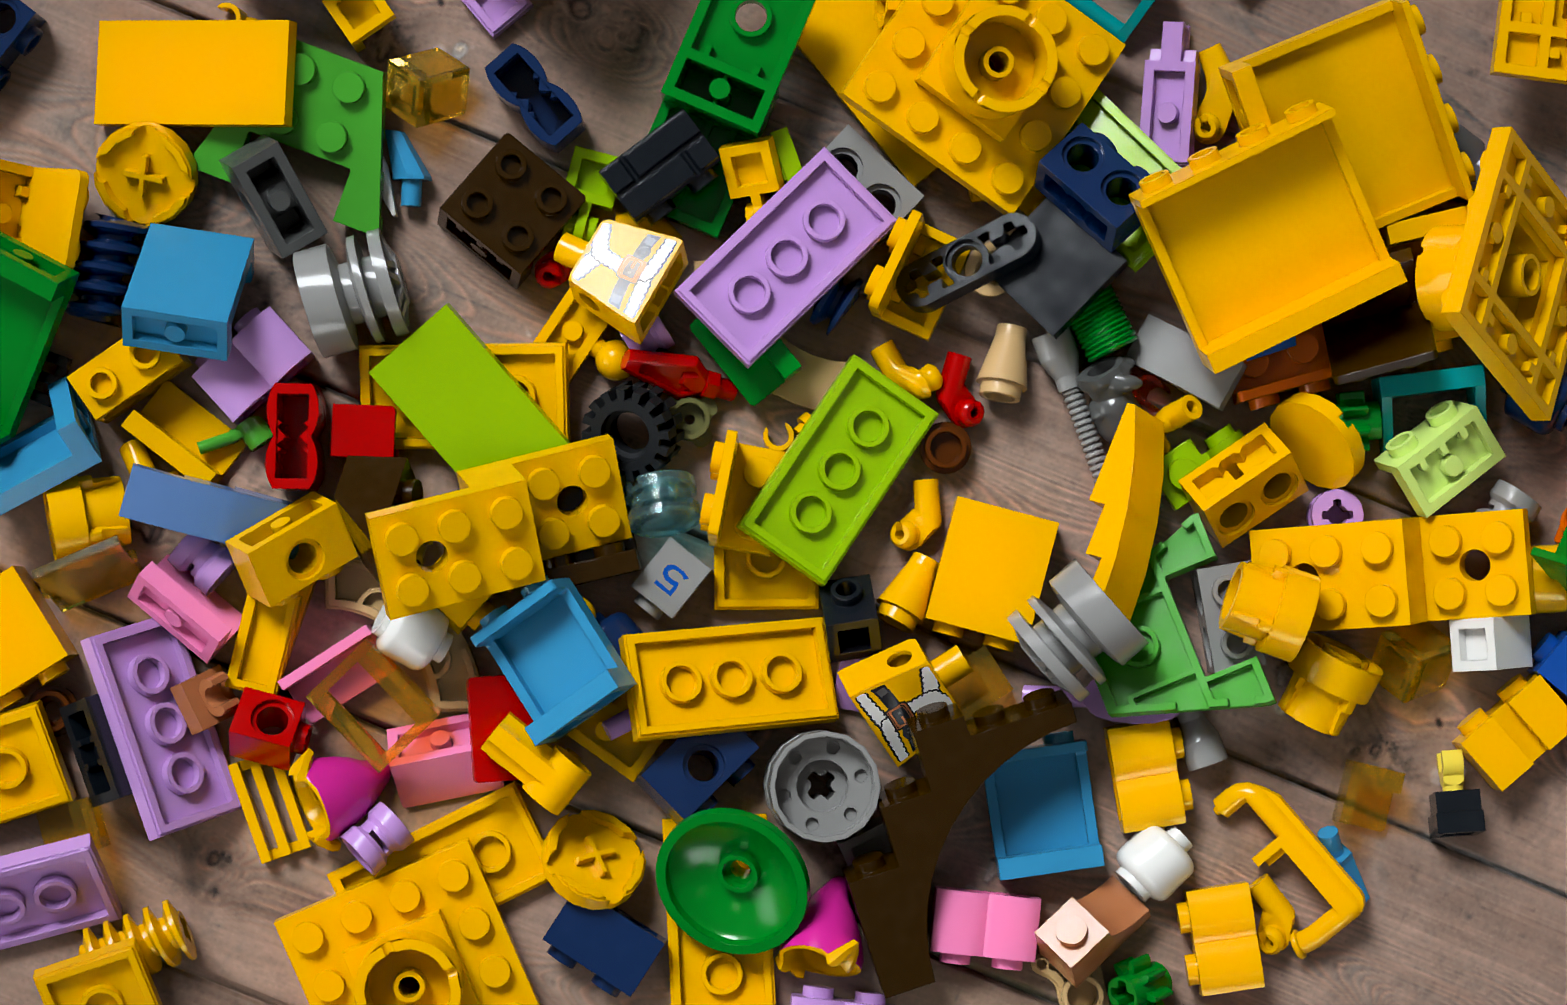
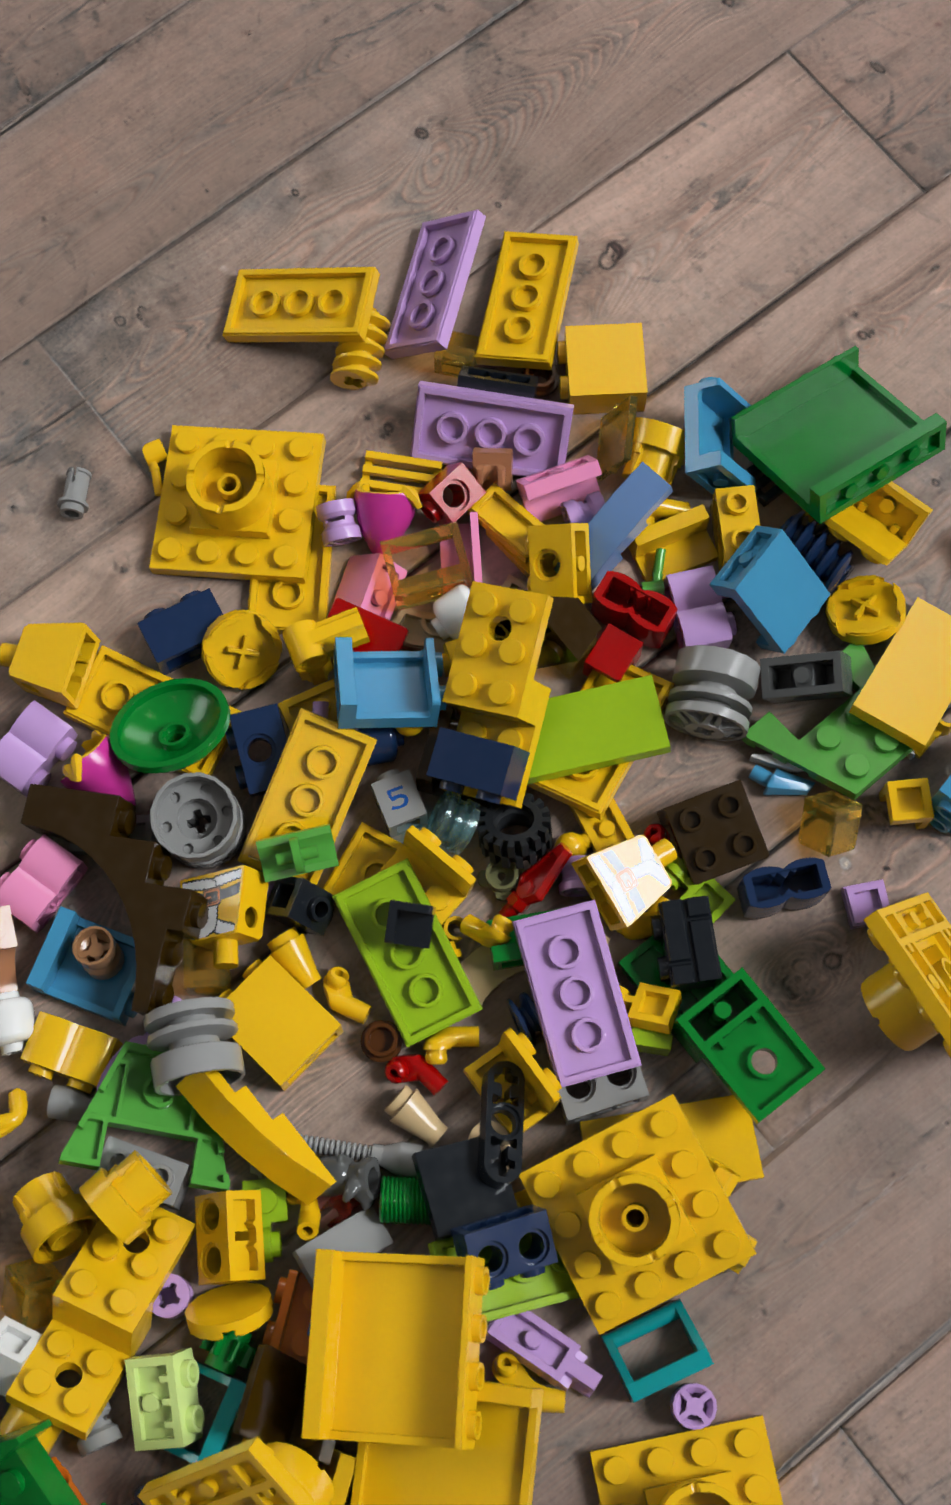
camera: 120 degrees right, 15 degrees down
(594, 502) = (477, 764): none -> dark blue brick
(770, 395) = (487, 934): none -> yellow arm
(800, 650) = (297, 853): none -> bright green hips
(811, 478) = (410, 924): none -> black panel
(1022, 817) = (91, 946): none -> medium nougat wheel

